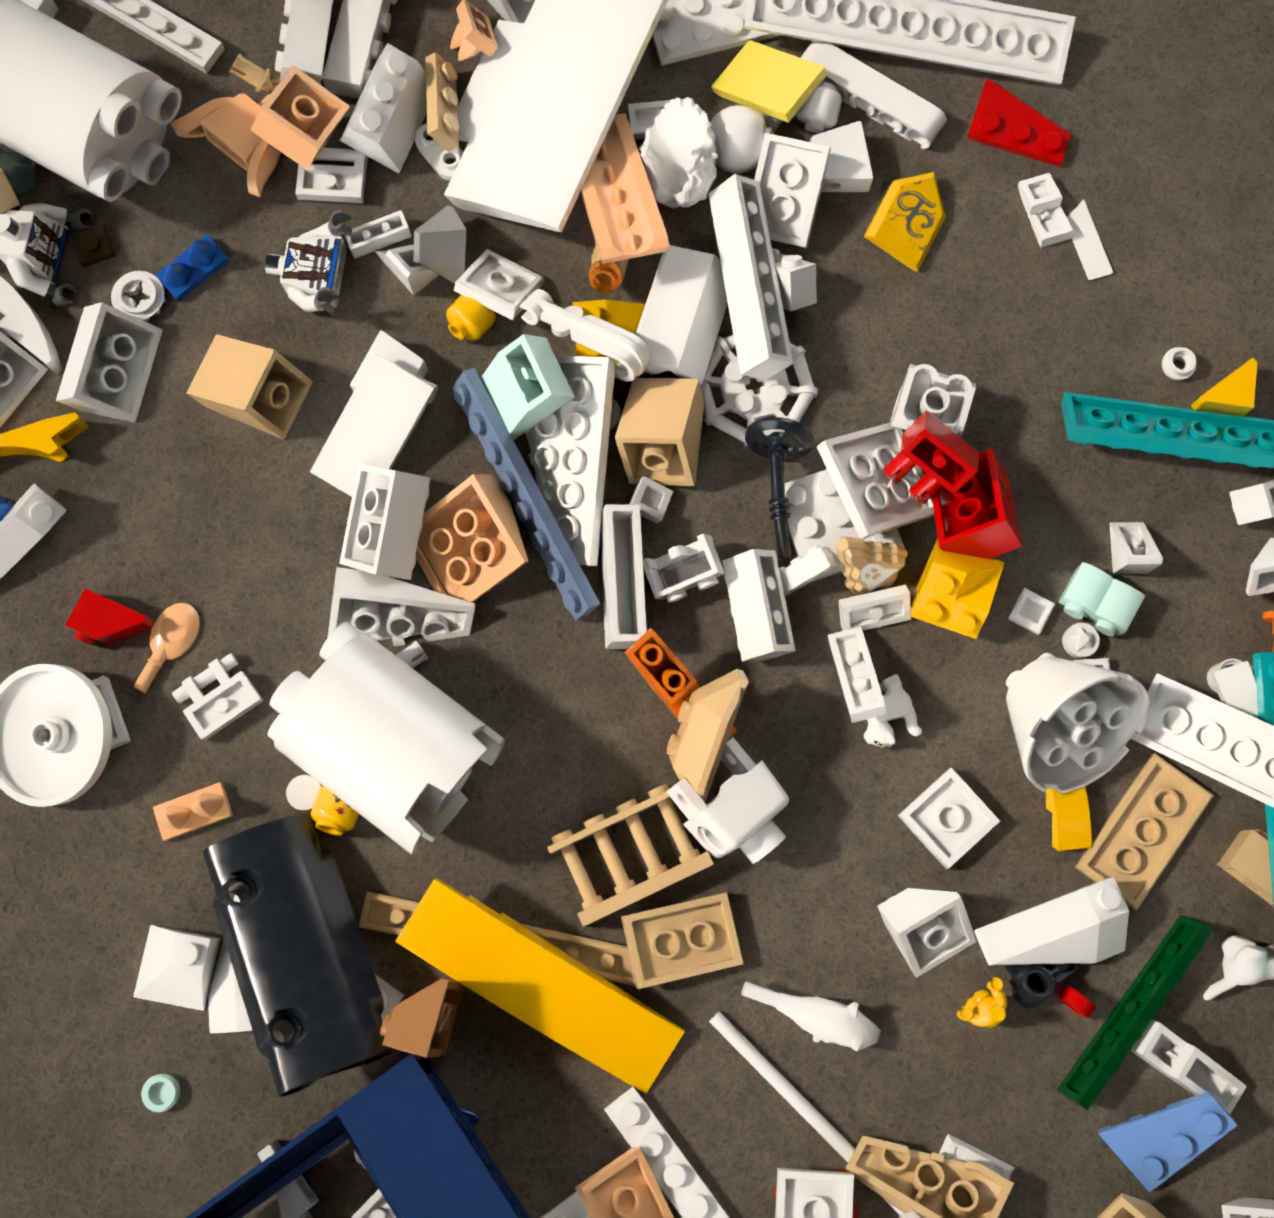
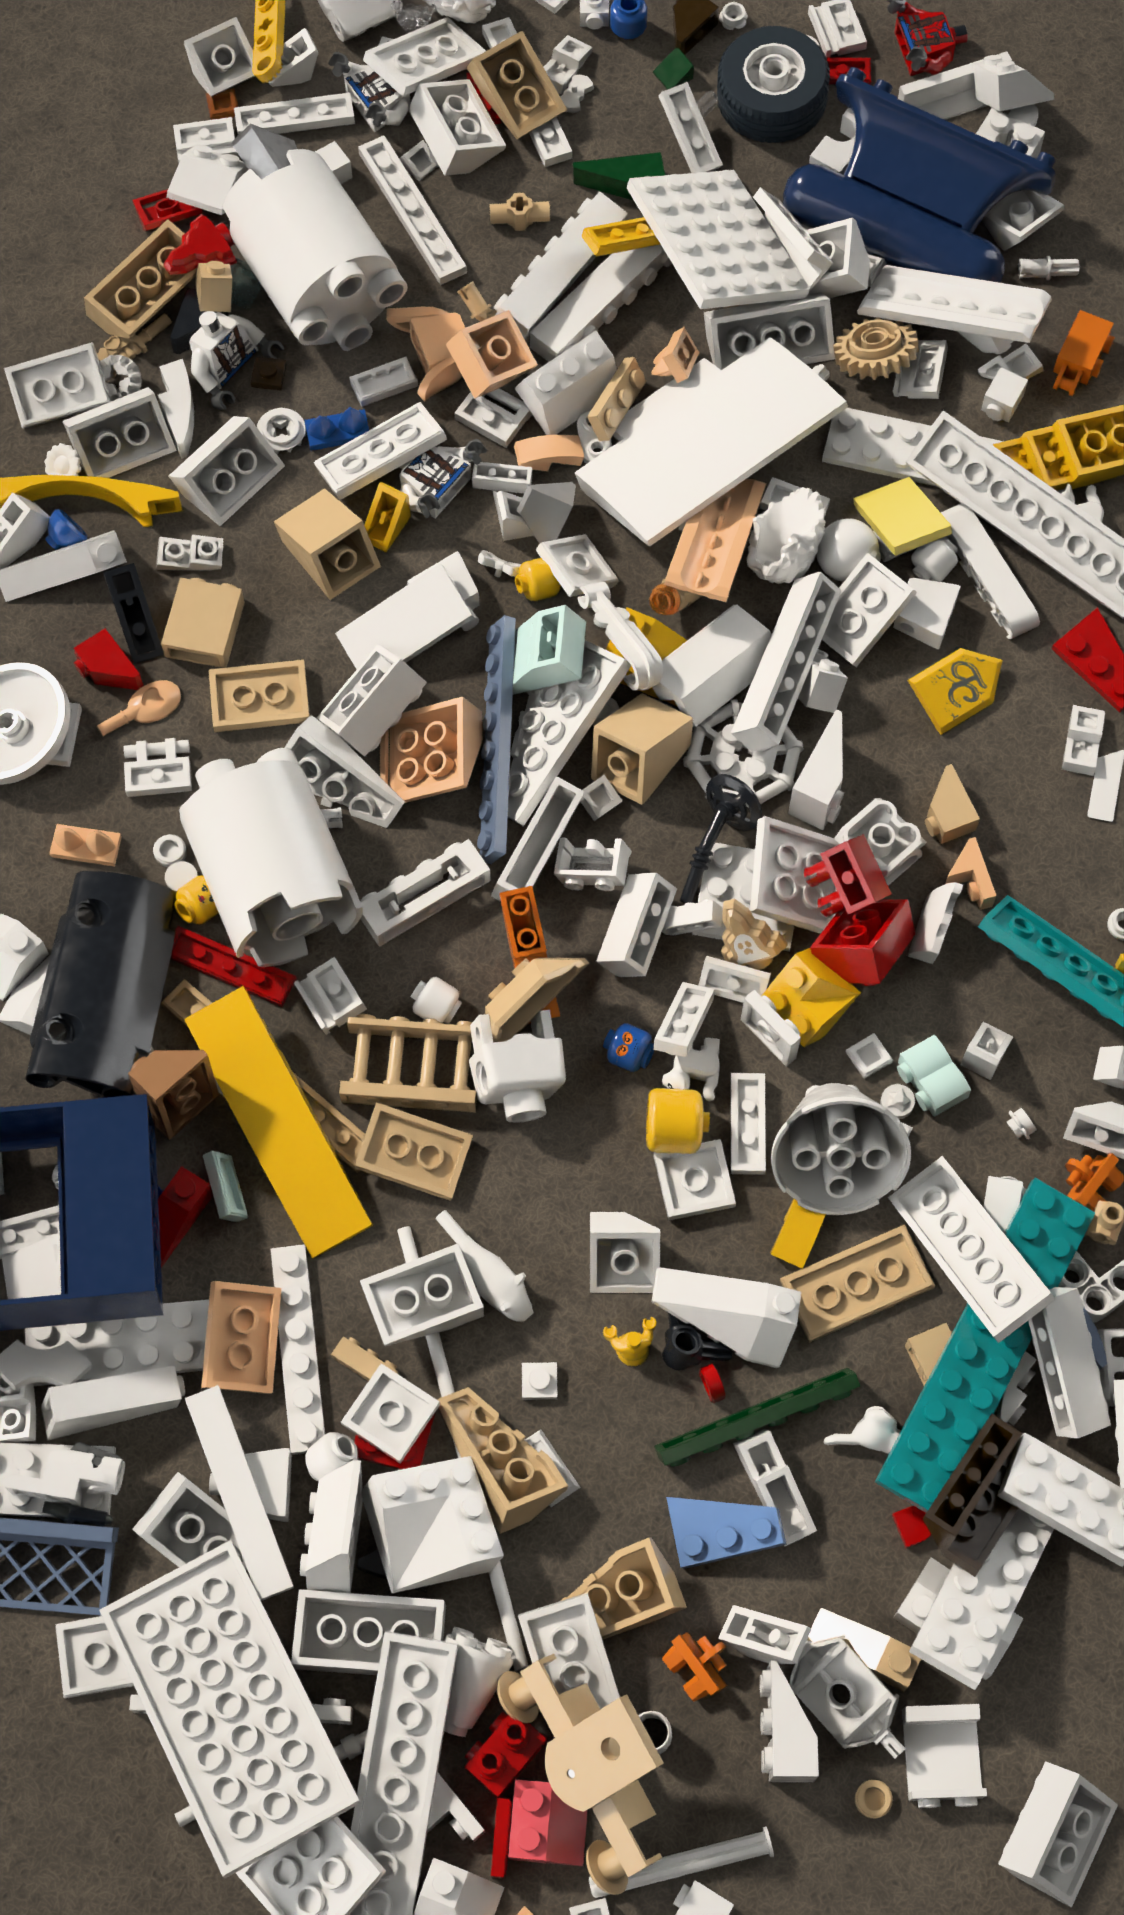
camera: 30 degrees right, 10 degrees down
(102, 555) = (133, 613): none -> black slope
(124, 466) = (197, 554): none -> white slope
(176, 528) = (203, 622): none -> tan brick
(209, 197) = (383, 381): none -> white plate
(247, 268) = (380, 450): none -> white tile
(273, 572) = (259, 695): none -> tan plate
(277, 771) = (169, 850): none -> white tile
(291, 330) = (387, 516): none -> yellow slope
(386, 856) = (222, 964): none -> red tile
(402, 187) = (543, 450): none -> light nougat slope
(413, 321) = (489, 559): none -> white piece
(497, 1123) = (179, 1208): none -> red slope
(515, 832) = (330, 995): none -> white plate
(527, 1075) = (225, 1186): none -> light aqua tile
(569, 630) = (466, 874): none -> white brick
(616, 781) = (436, 1000): none -> white head
(752, 1168) = (357, 1359): none -> tan piece
(776, 1081) = (423, 1296): none -> white slope
(819, 726) = (629, 1047): none -> blue head
(846, 369) = (817, 790): none -> white slope
(904, 775) = (675, 1121): none -> yellow head
(921, 1089) = (539, 1381): none -> white plate
(929, 635) = (776, 1034): none -> white plate
(964, 737) = (748, 1124): none -> white plate
(969, 337) = (951, 809): none -> tan slope
(1021, 382) = (972, 868): none -> light nougat slope
(1021, 453) = (934, 922): none -> white slope
(1200, 601) = (1021, 1124): none -> white plate

